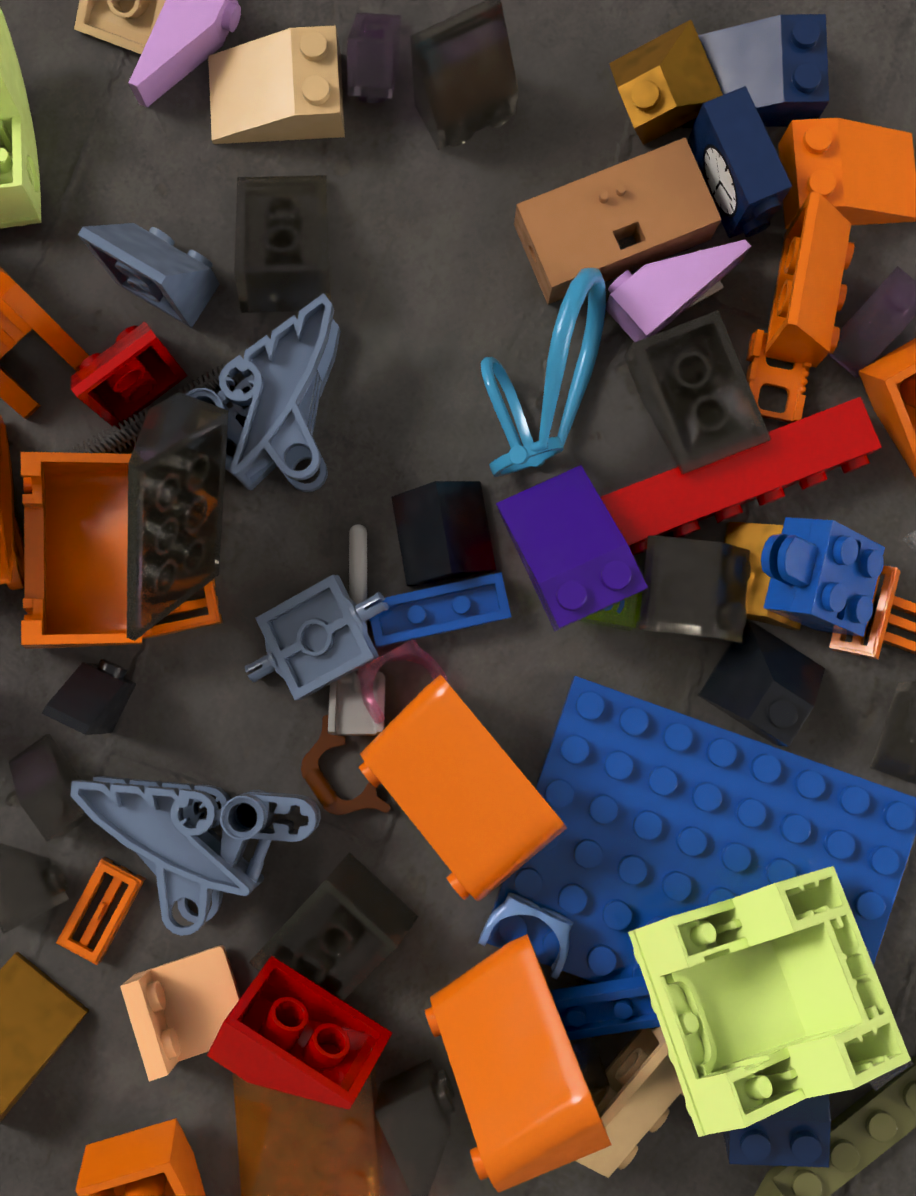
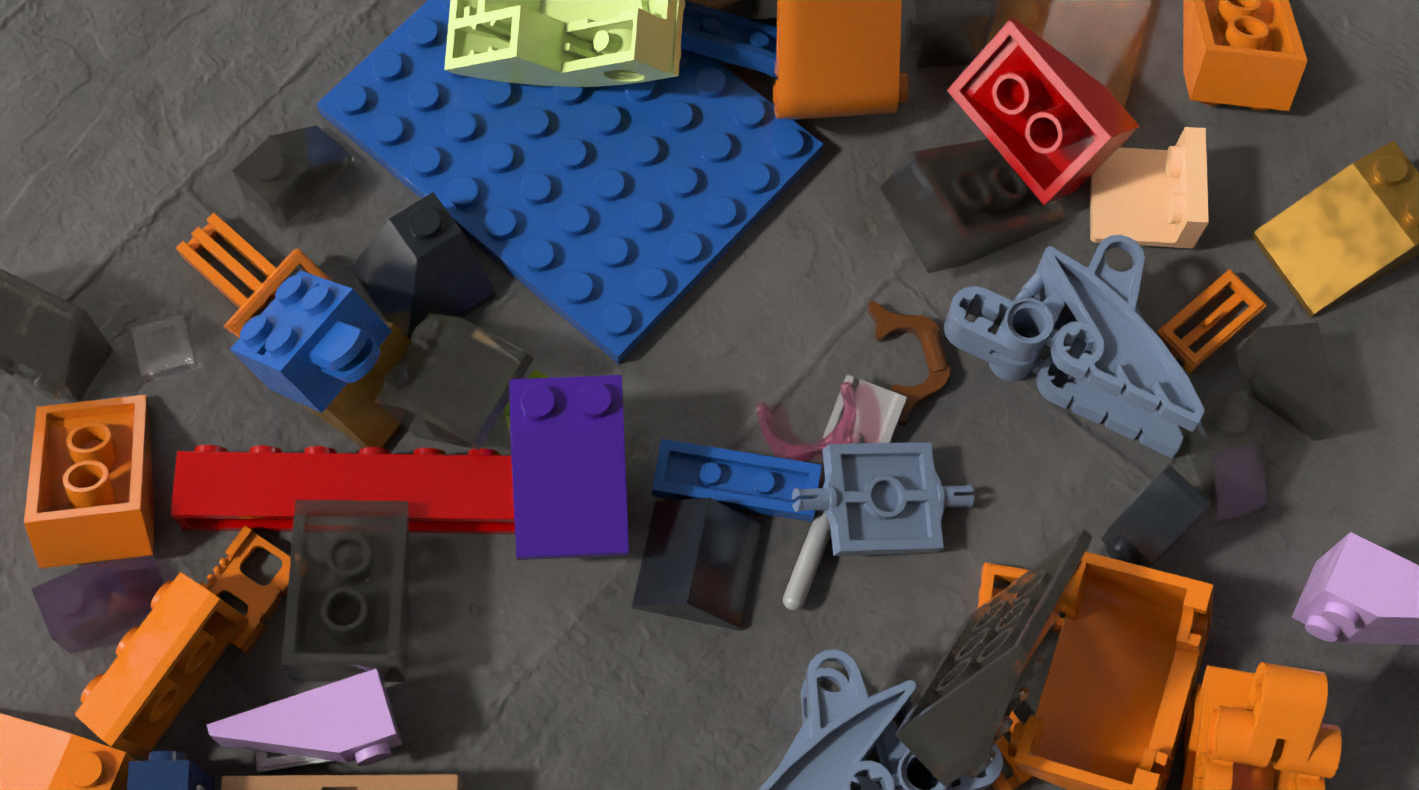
camera: 160 degrees left, 15 degrees down
(460, 790) = (790, 281): orange windscreen -> none
(519, 905) = (771, 153): medium blue cap -> none
(533, 453) = (491, 655): dark azure animal -> none

